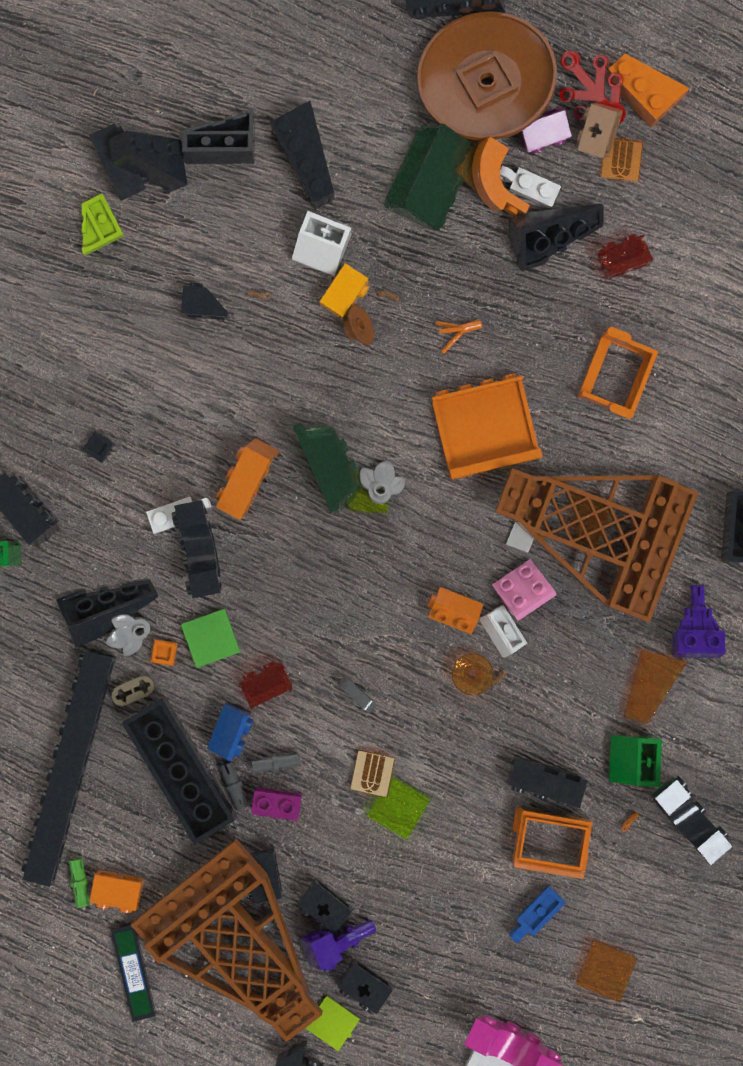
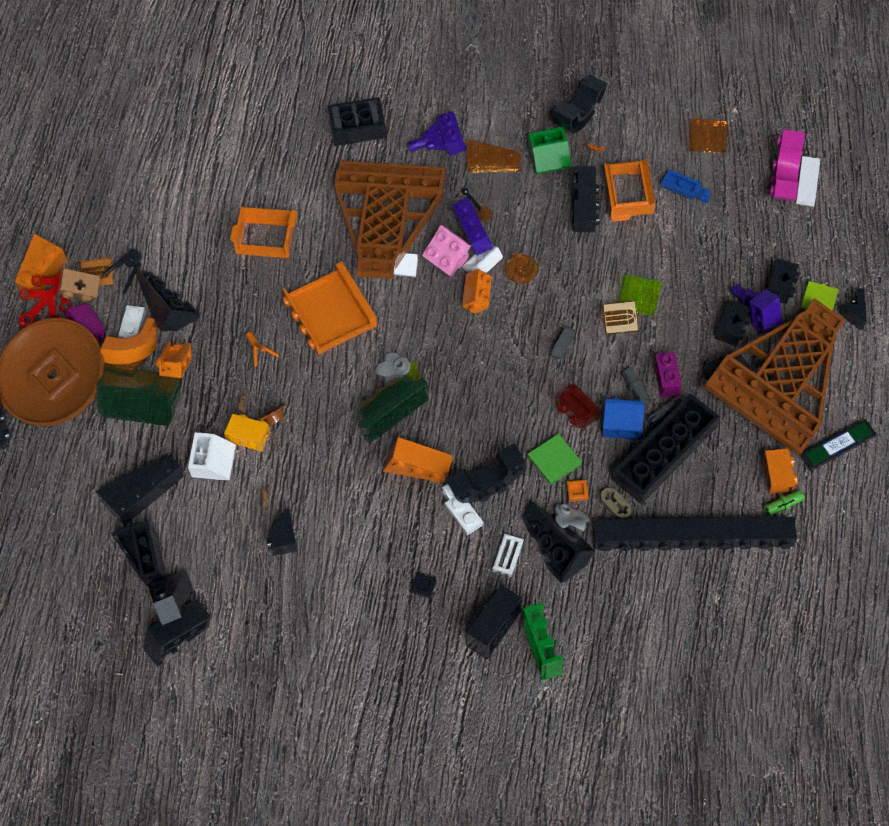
camera: 100 degrees left, 25 degrees down
(91, 539) = (503, 570): none -> white tile
(98, 225) = (235, 635): lime wing -> none
(461, 225) = (174, 360): none -> orange hinge
(548, 630) = (472, 226): none -> dark purple brick
(571, 651) = (484, 212): none -> clear orange hinge
(624, 256) = (173, 249): clear red hinge -> none
(626, 202) = (130, 259): none -> black plant

